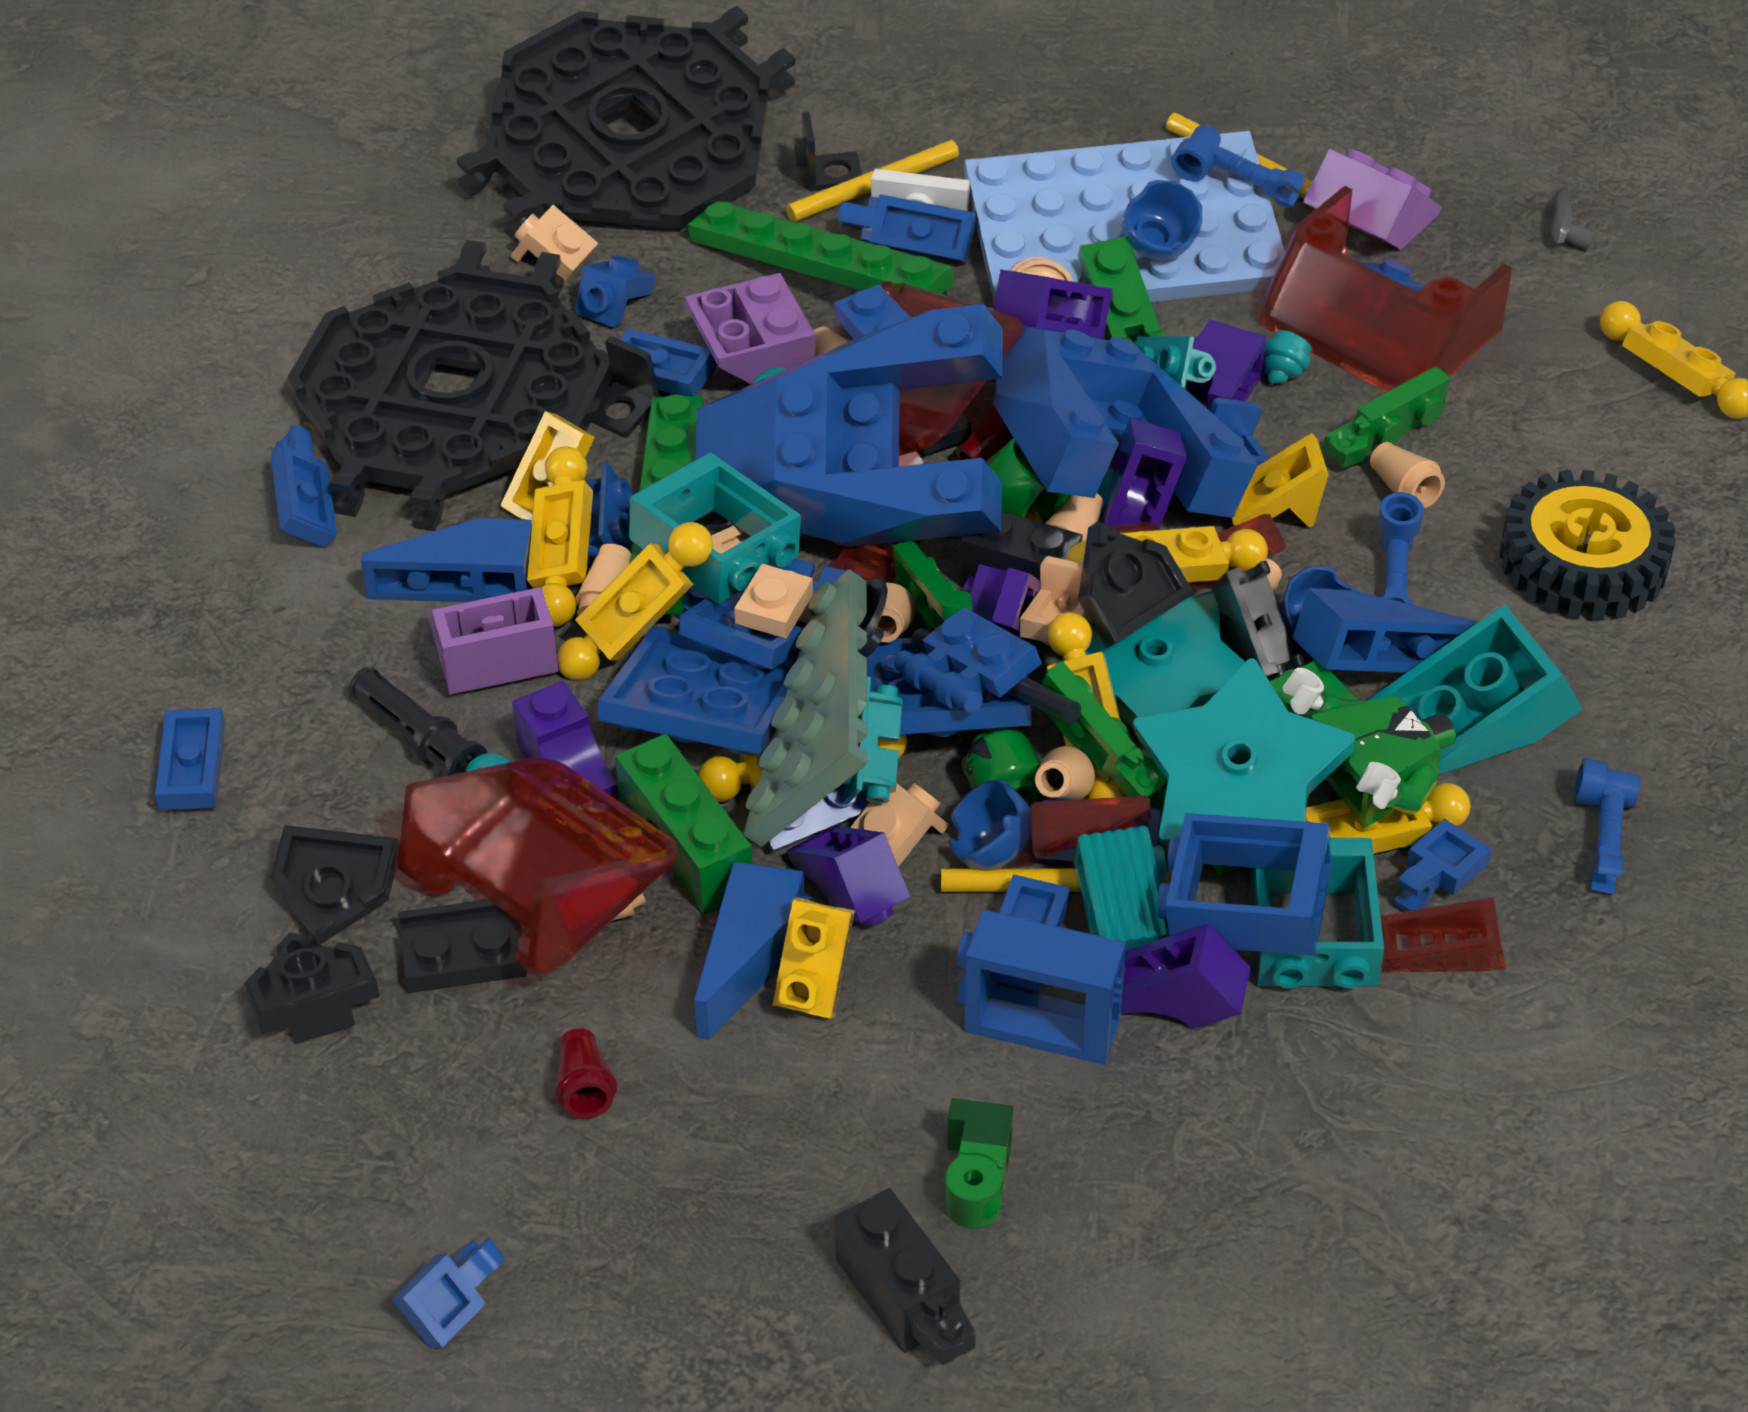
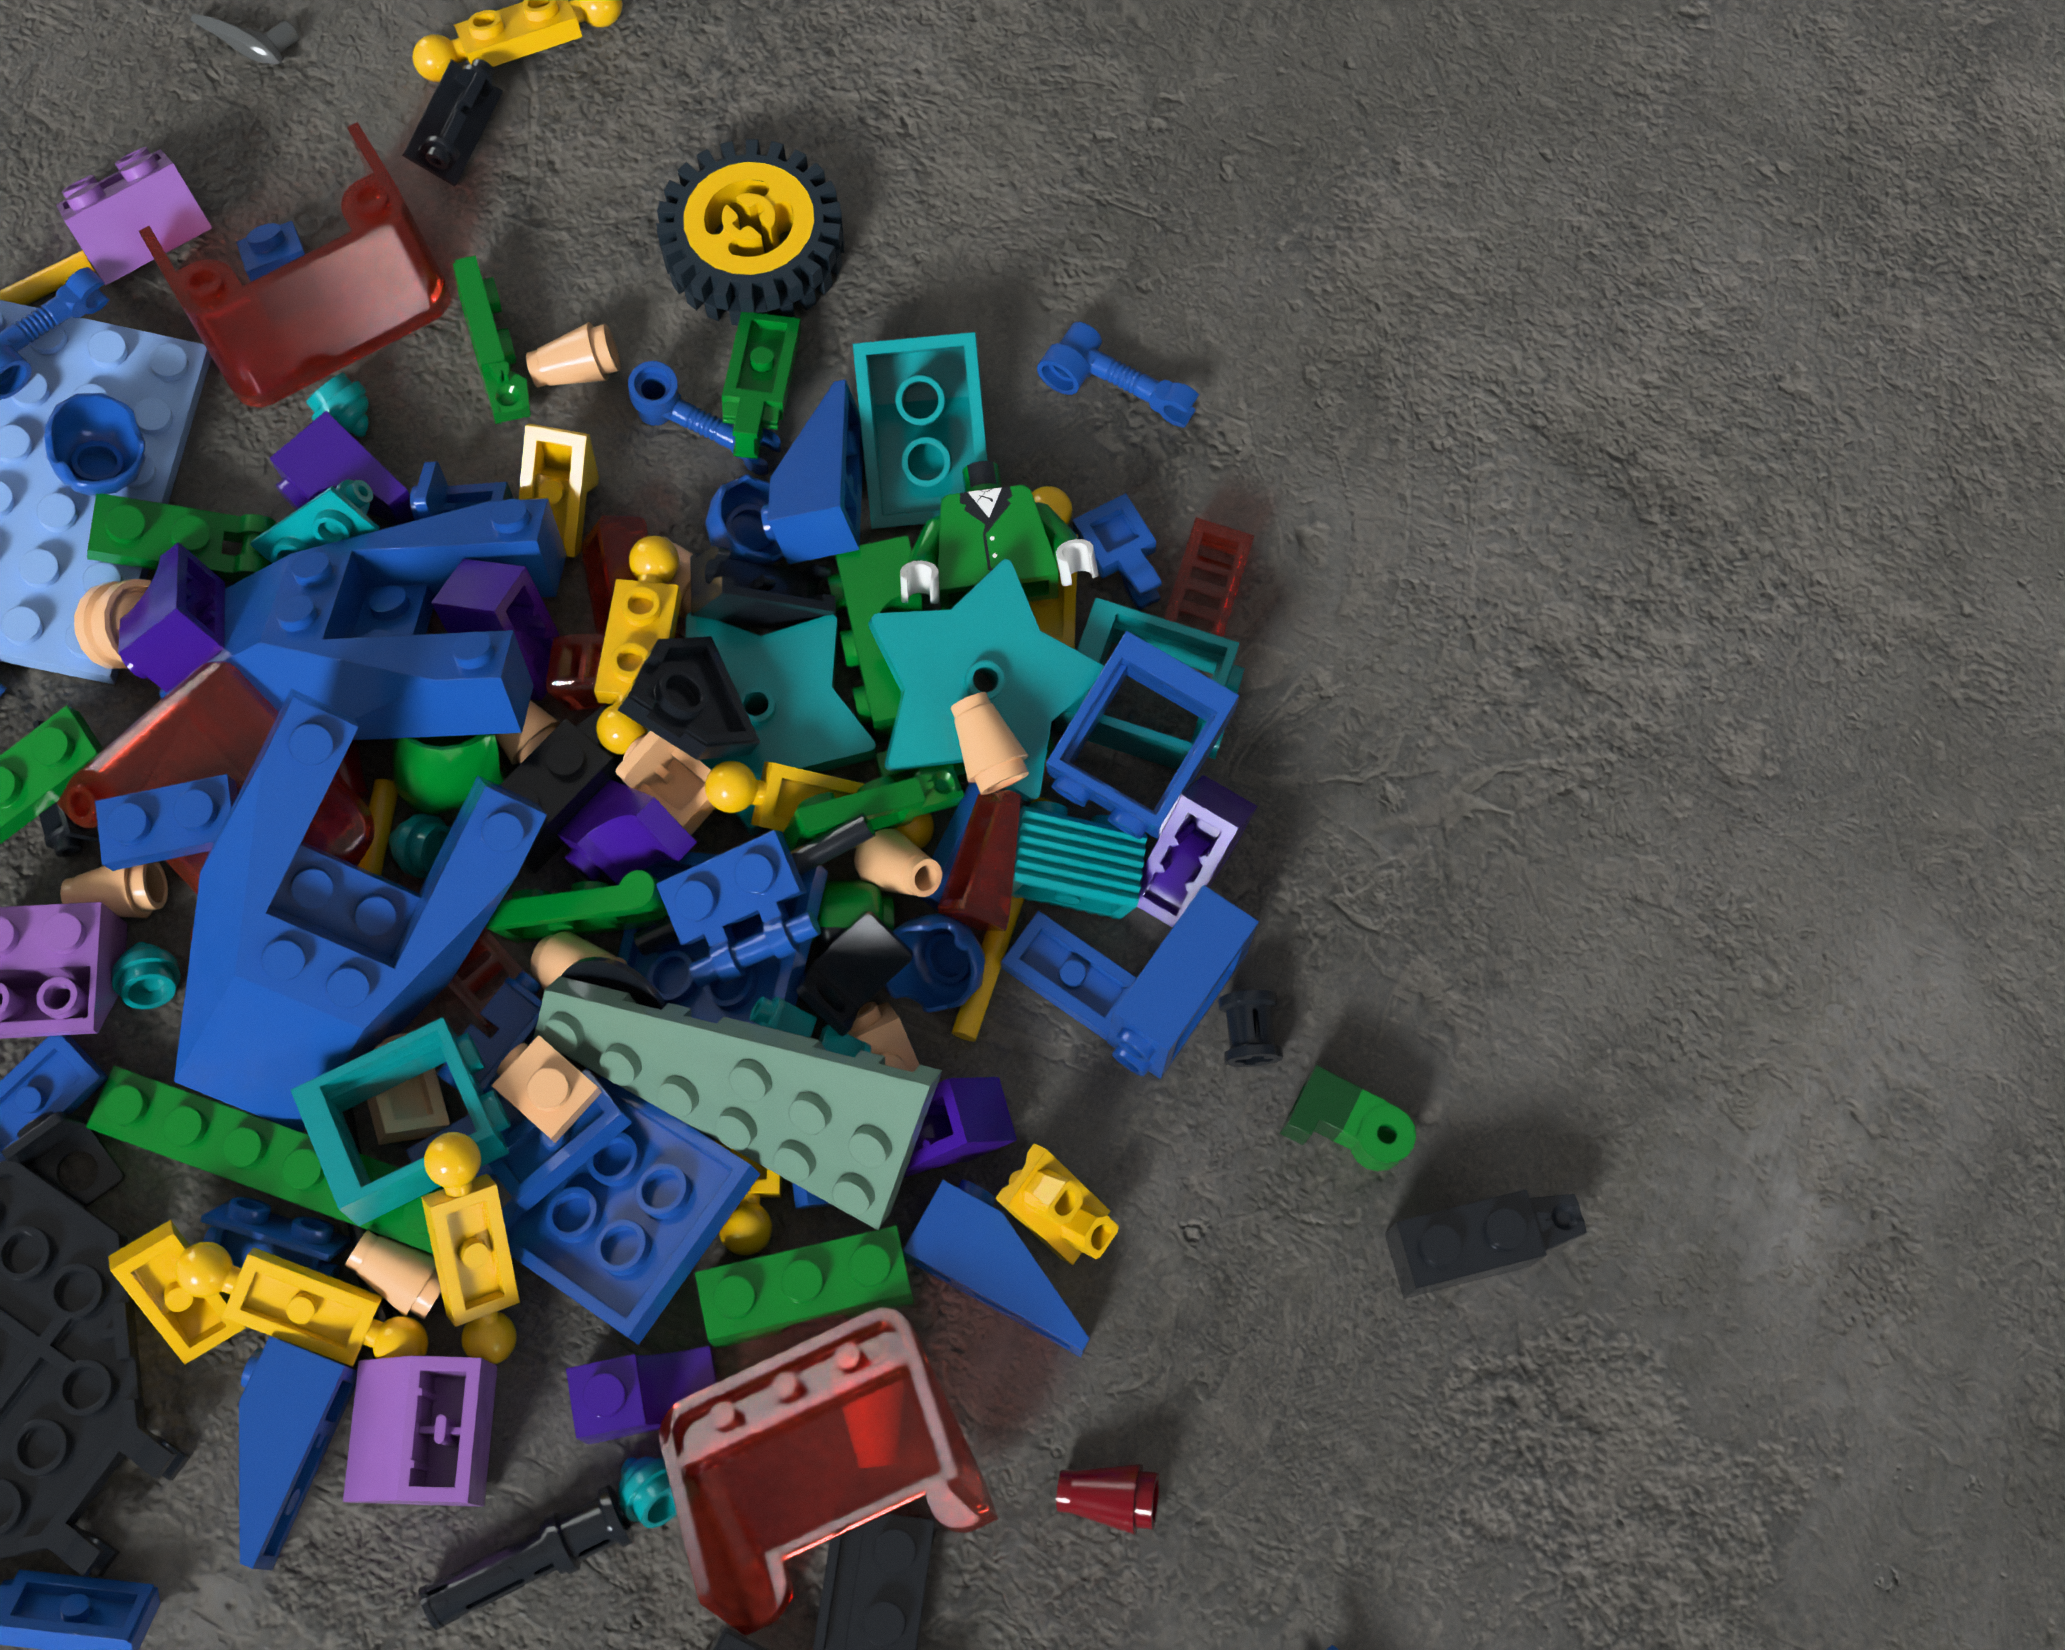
camera: 75 degrees left, 25 degrees up
(951, 764) = (853, 970): none -> black bracket
(1033, 1067) = (1250, 1028): none -> black bush
(1178, 771) = (987, 745): none -> light nougat cone
(1451, 580) = (759, 378): none -> green hinge
(1570, 347) = (454, 120): none -> black hinge

